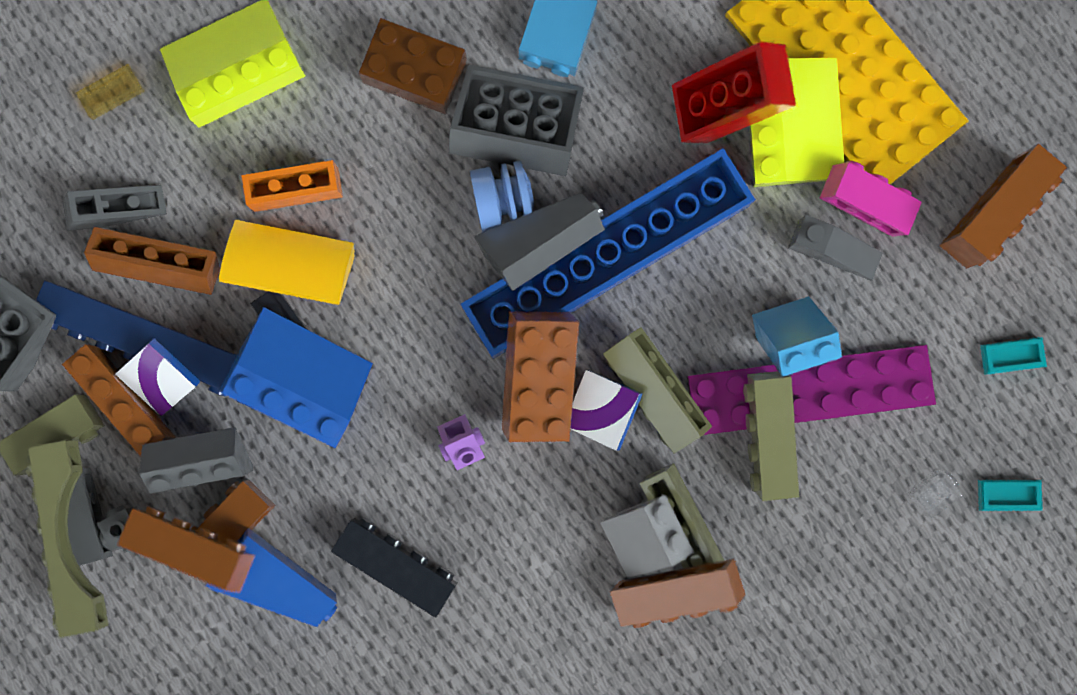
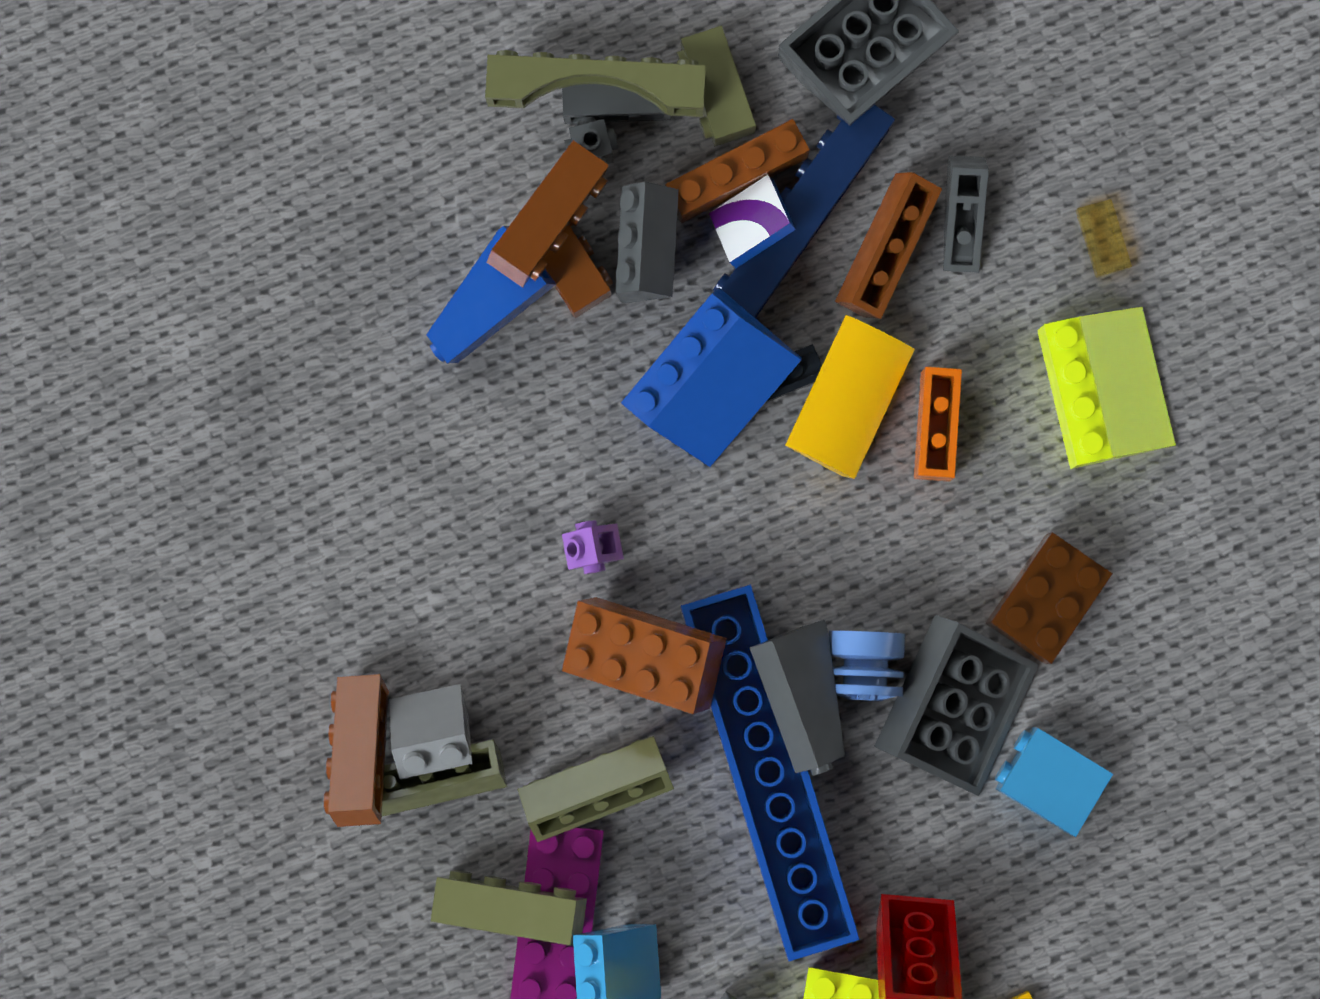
camera: 110 degrees right, 0 degrees up
(394, 566) = (470, 437): black brick -> none
(603, 409) = (588, 720): tile -> none

